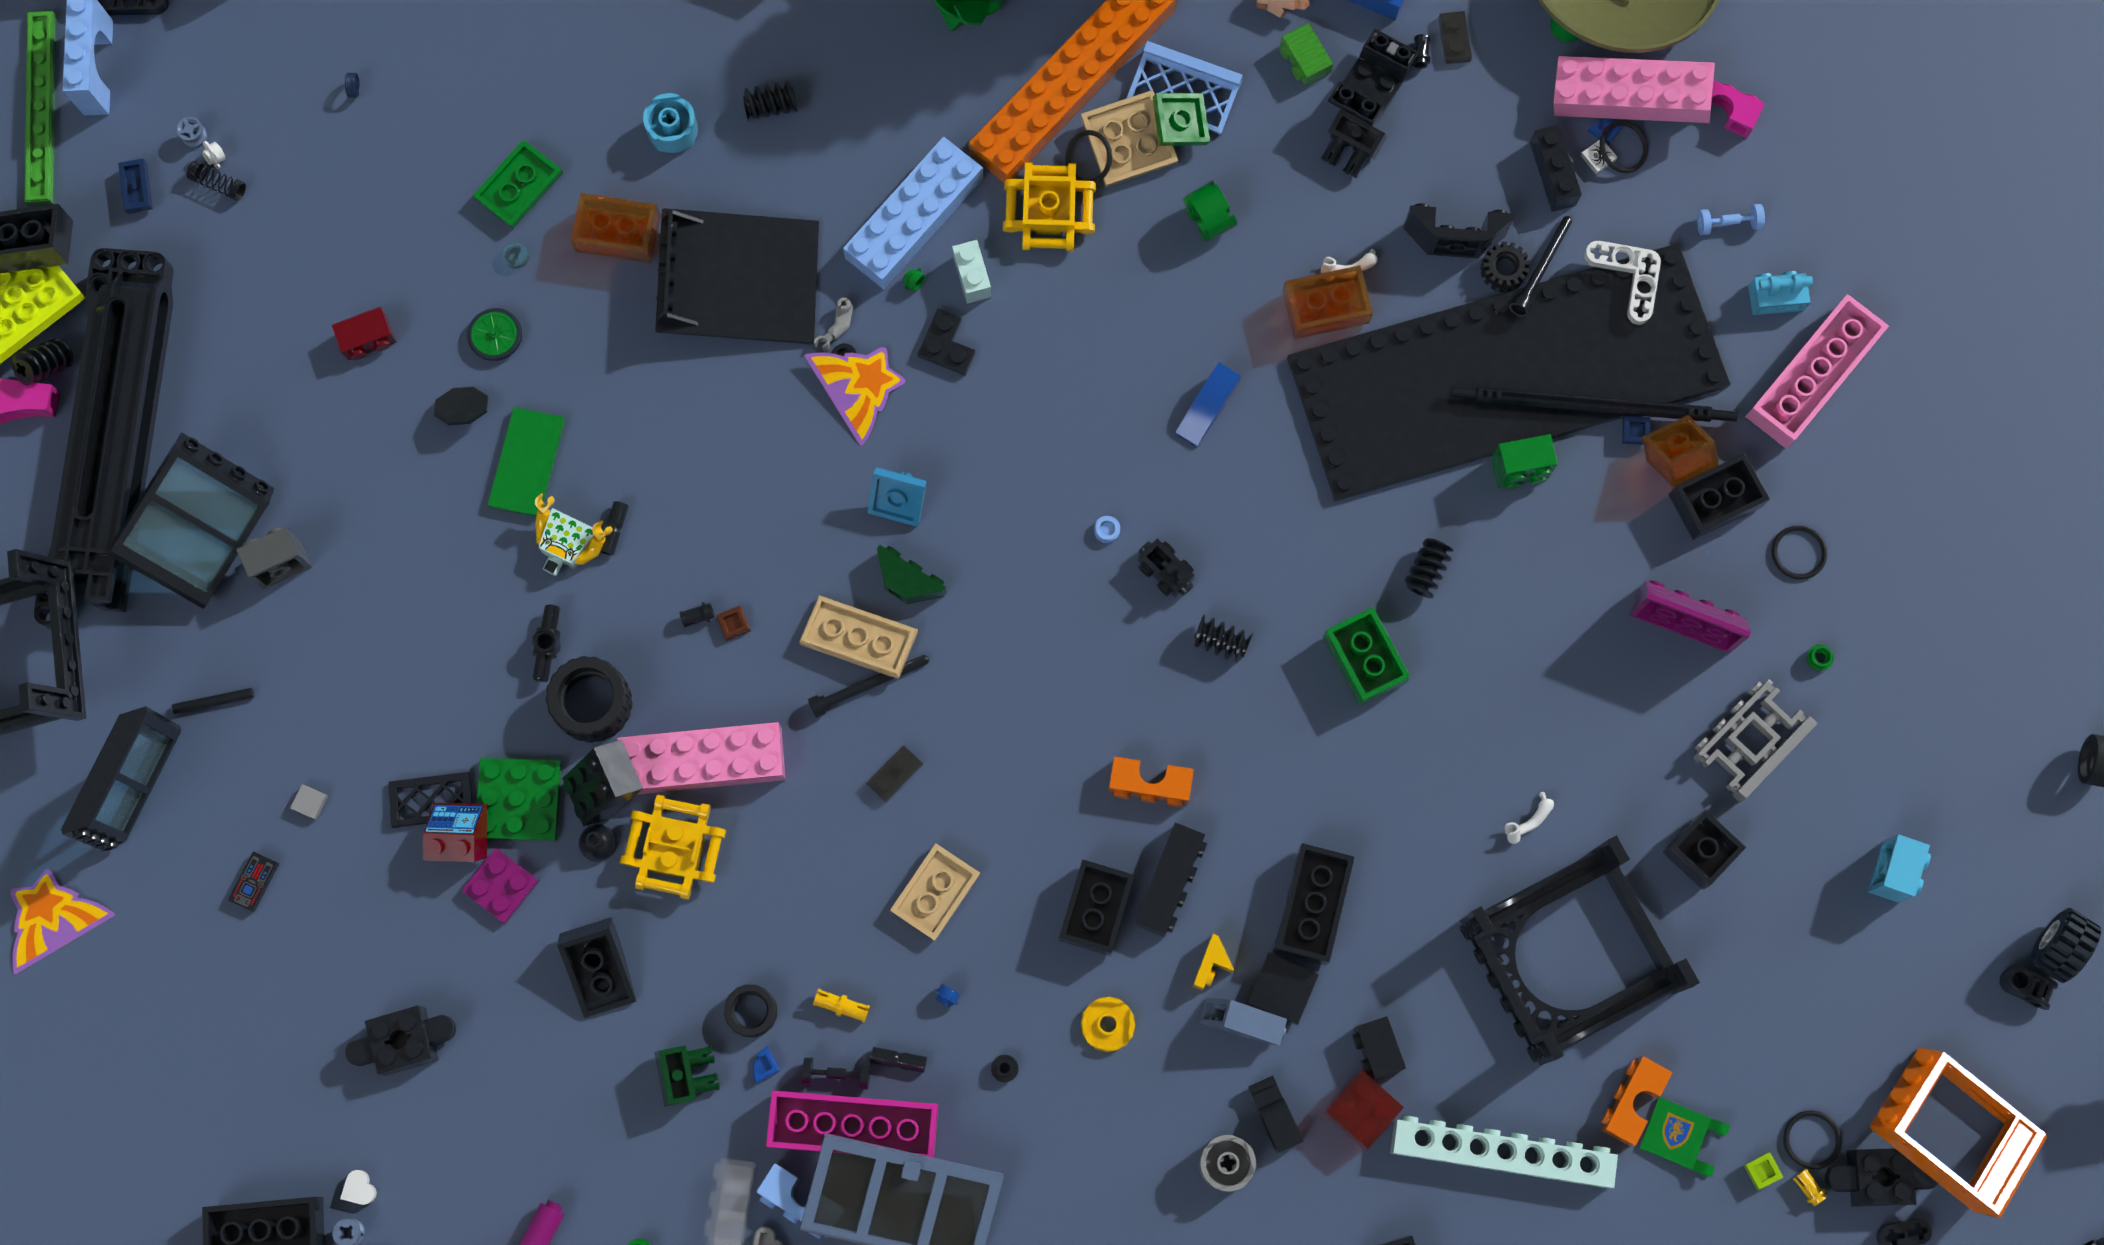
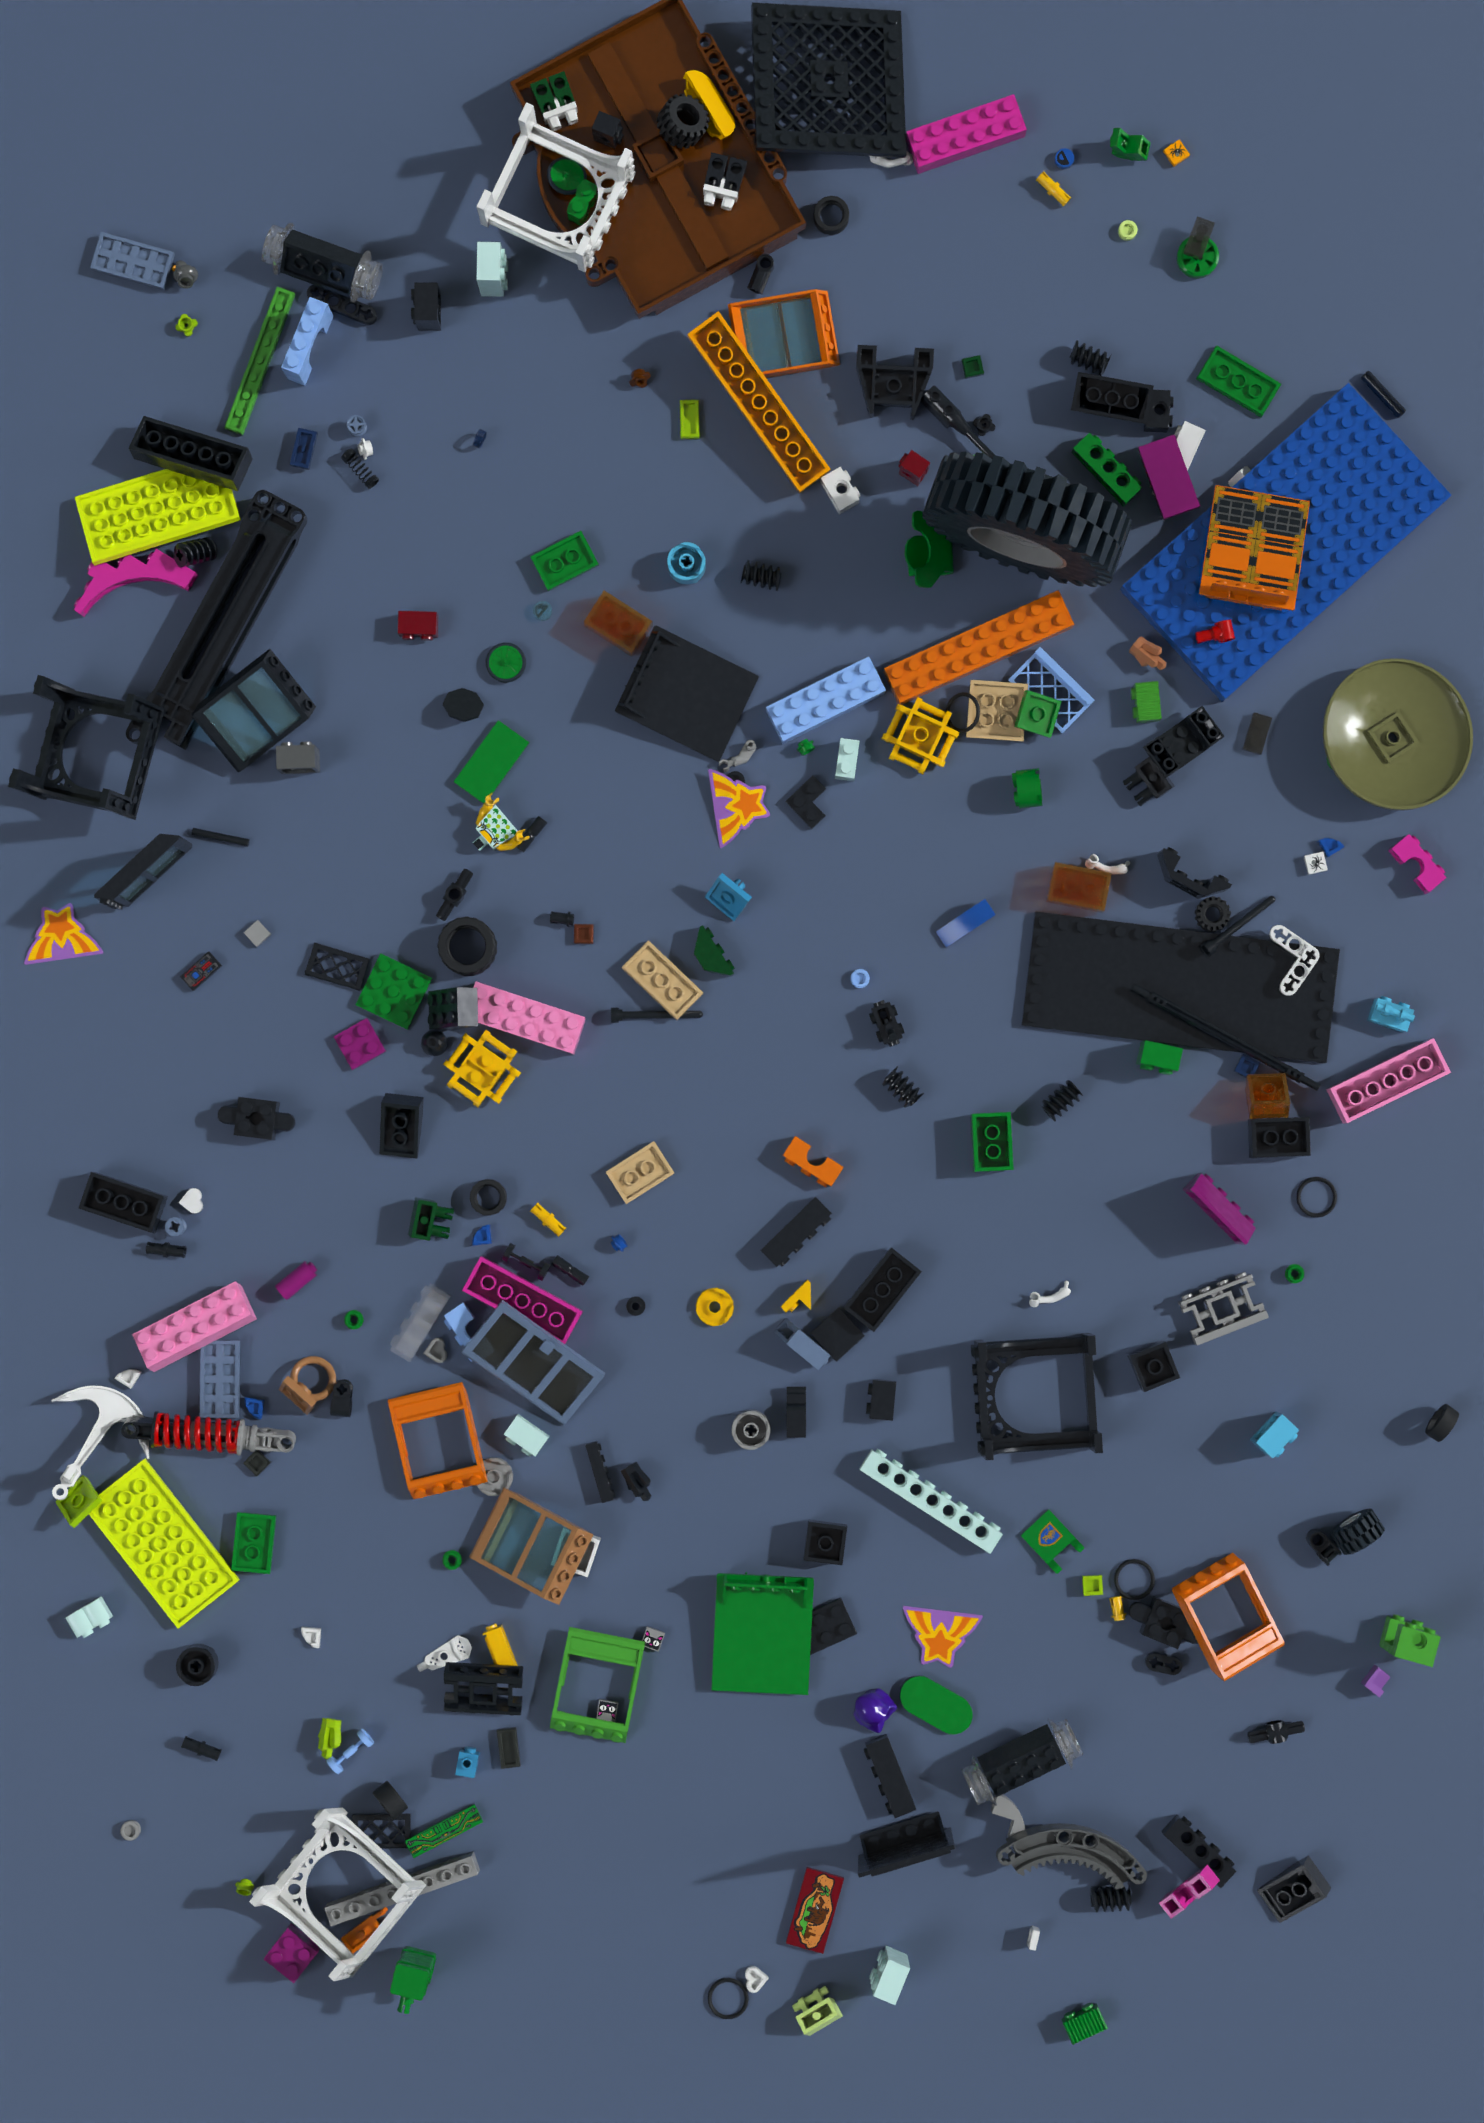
camera: 25 degrees right, 10 degrees up
(456, 832) = (345, 998): dark red slope -> none
(894, 774) = (647, 1082): clear smoke plate -> none
(1096, 907) = (739, 1229): black brick -> none
(1363, 1110) = (853, 1434): clear red brick -> none
(1423, 48) = (1229, 733): black pin -> none
(1555, 168) = (1280, 859): black brick -> none
(1622, 1120) = (1017, 1513): orange arch -> none
(1634, 89) = (1359, 829): bright pink brick -> none
(1642, 137) = (1319, 864): black tyre -> none
(1756, 217) = (1402, 953): light blue wheel -> none

